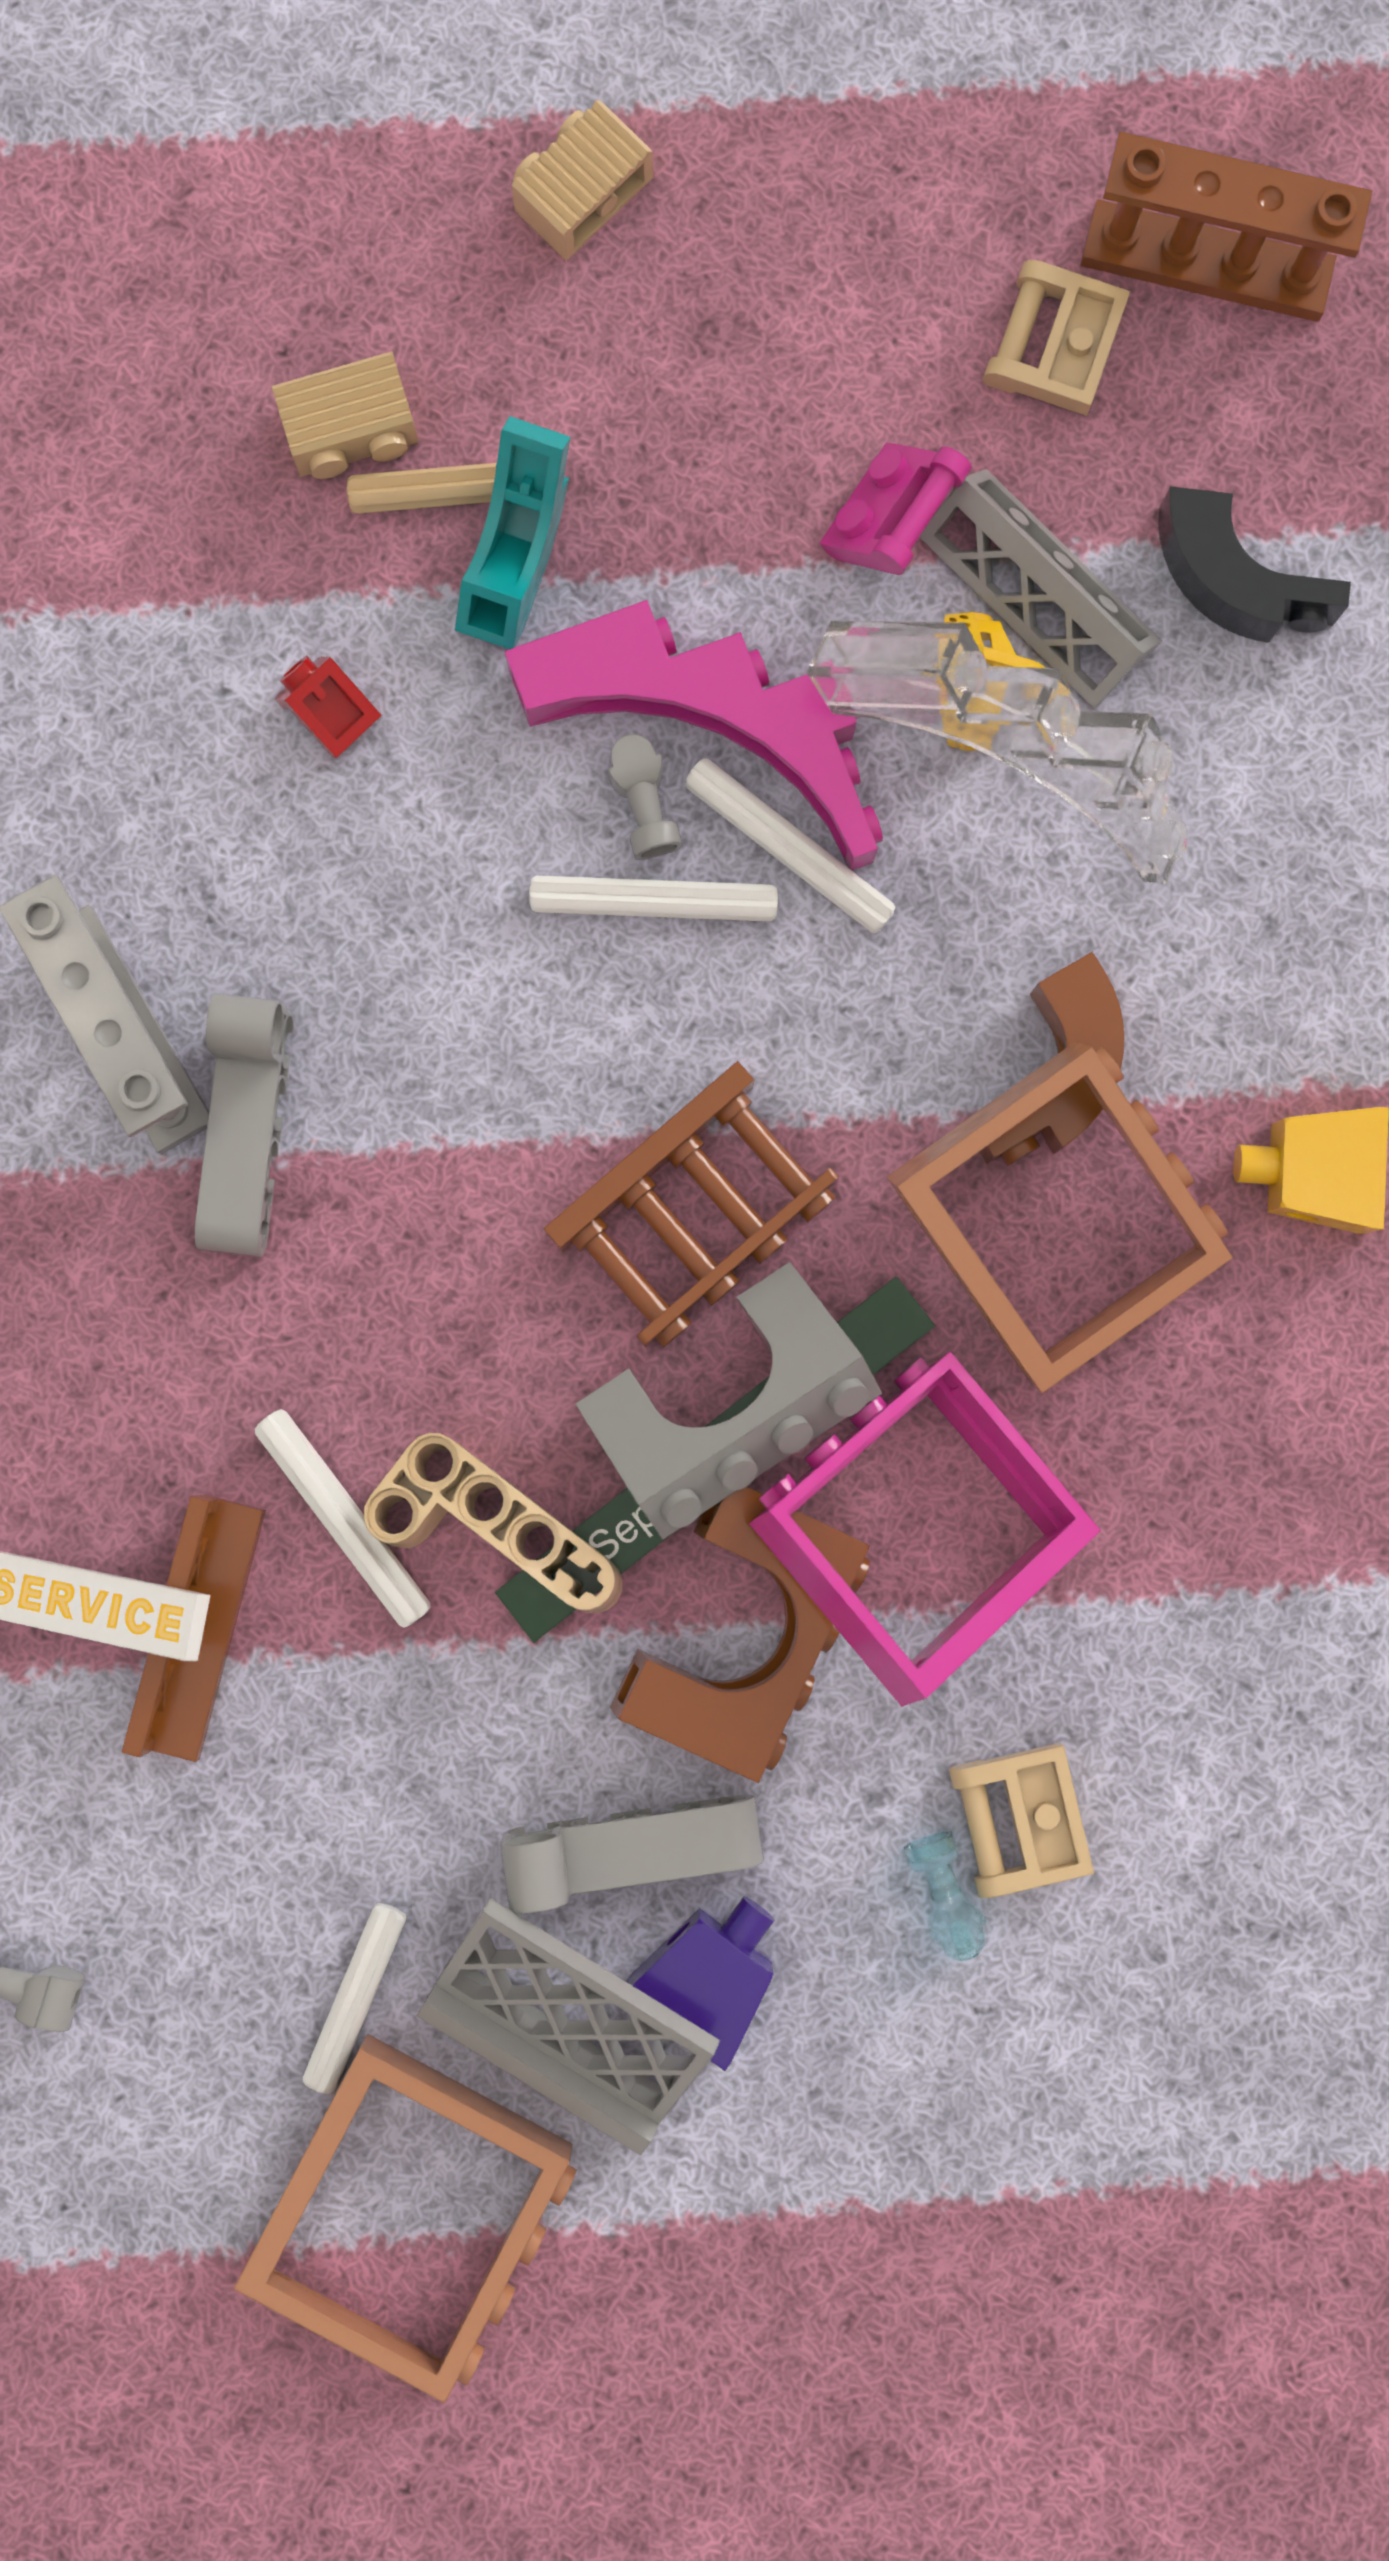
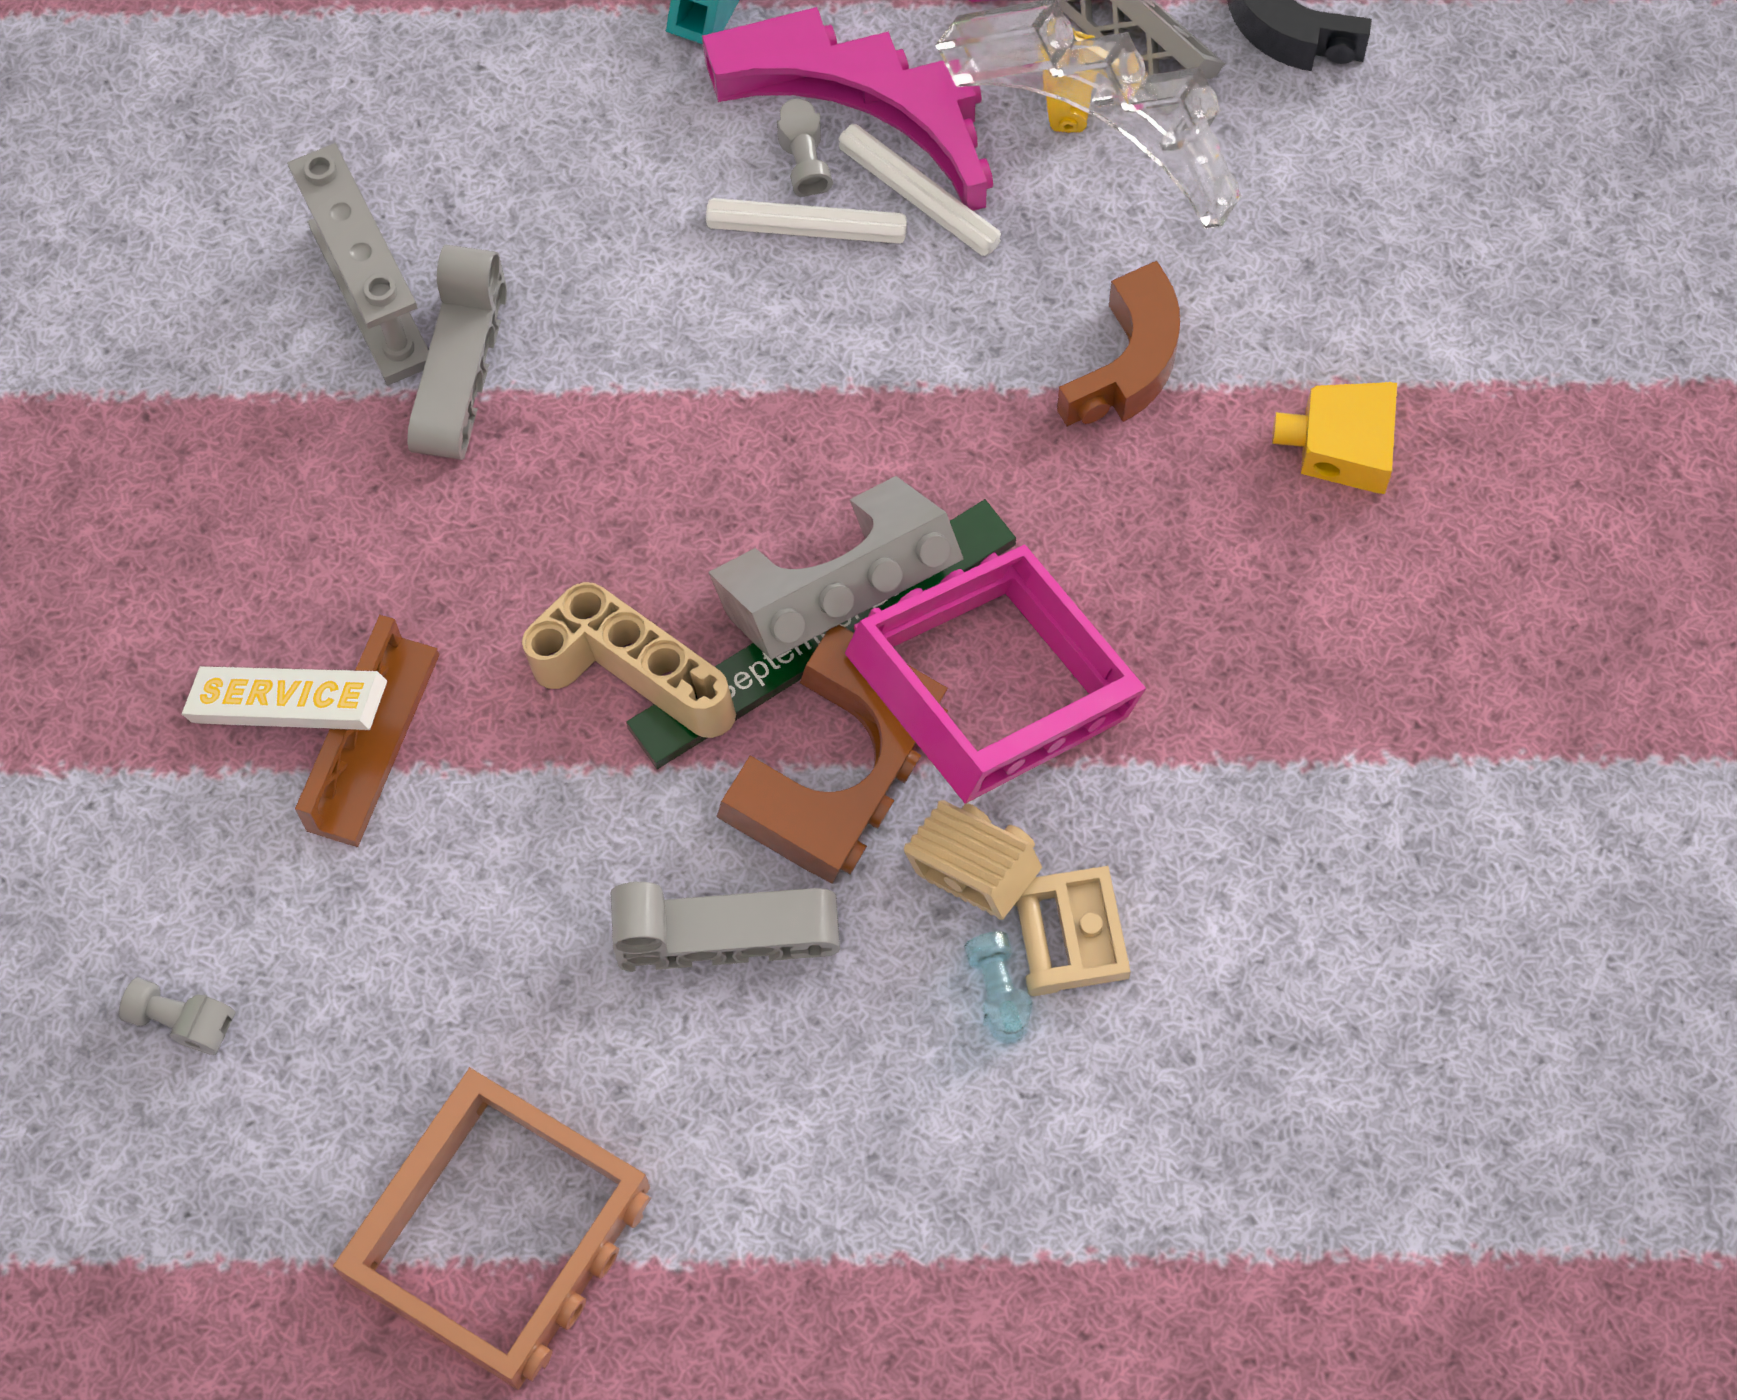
camera: 10 degrees right, 20 degrees down
(326, 703) = (560, 72): red bracket -> none
(342, 1518) = (504, 660): white axle -> none
(354, 1998) = (470, 1040): white axle -> none
(556, 2052) = (642, 1097): light grey fence -> none
(632, 1186) = (811, 388): dark orange fence -> none
(712, 1974) = (782, 1041): dark purple torso -> none
(912, 1753) = (973, 857): none -> tan brick
(1167, 1173) = (1051, 492): nougat window -> none

